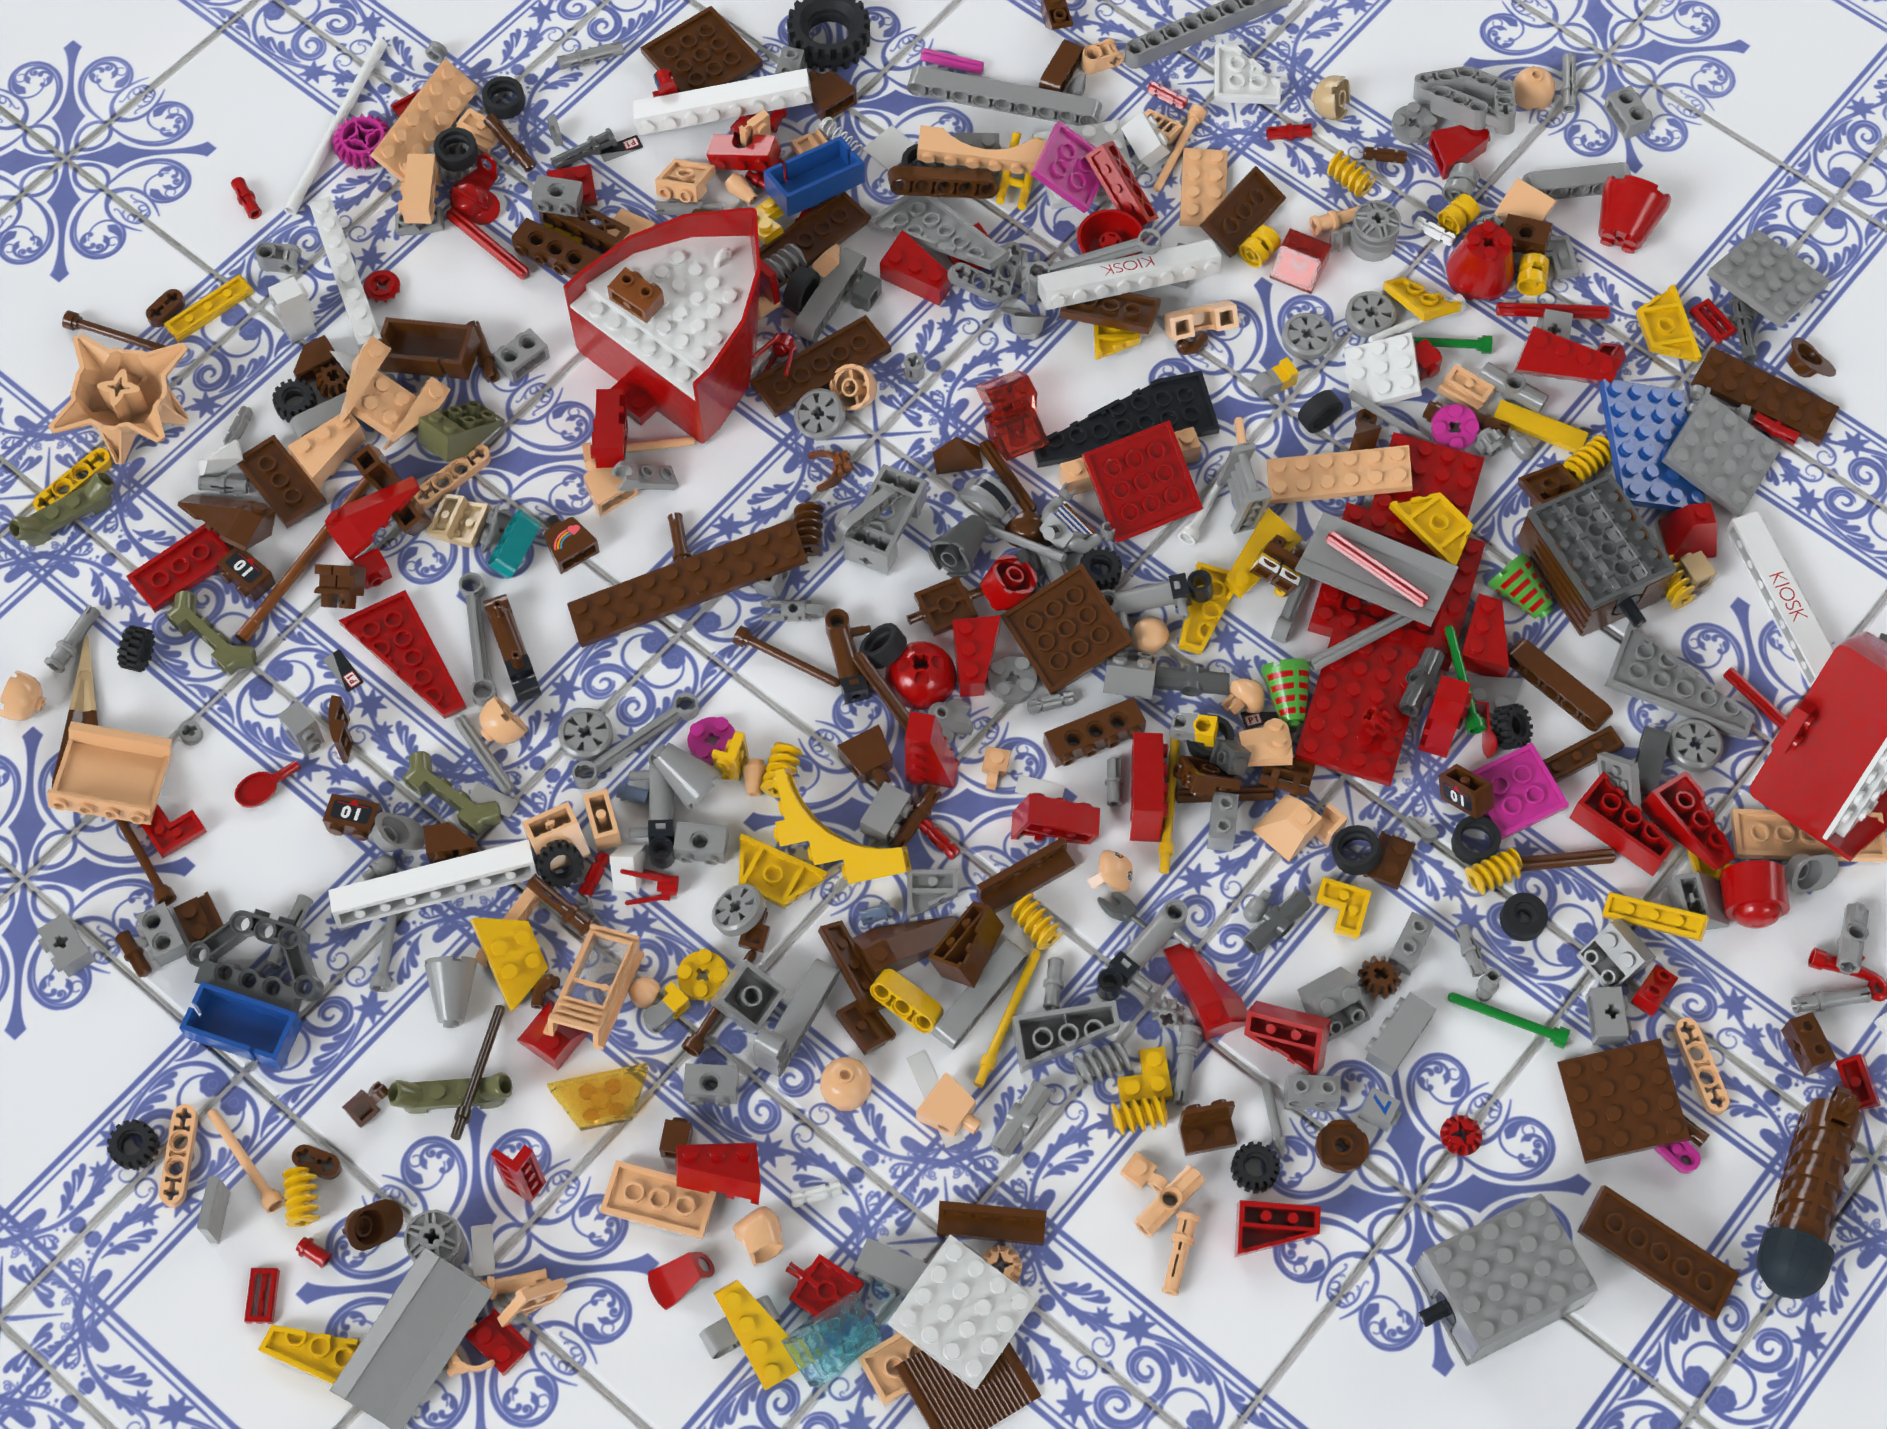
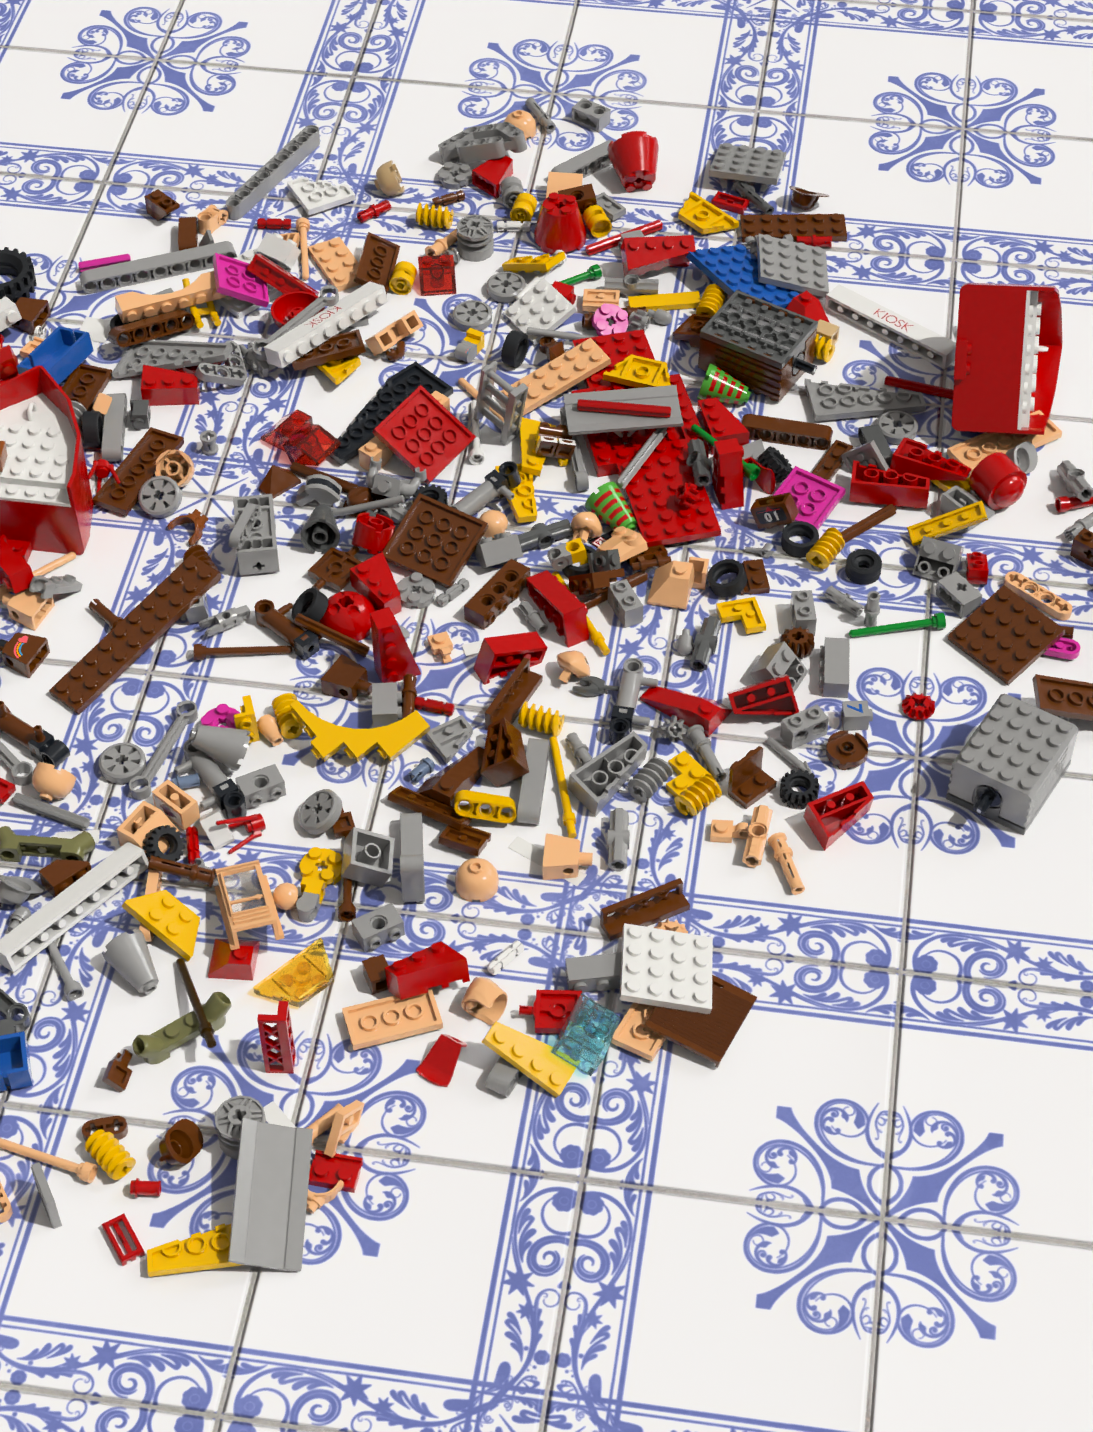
camera: 30 degrees left, 15 degrees down
(547, 982) = (203, 933): reddish brown arm -> none
(776, 873) = (337, 776): yellow wing -> none
(1025, 323) = (273, 385): light grey piece -> none

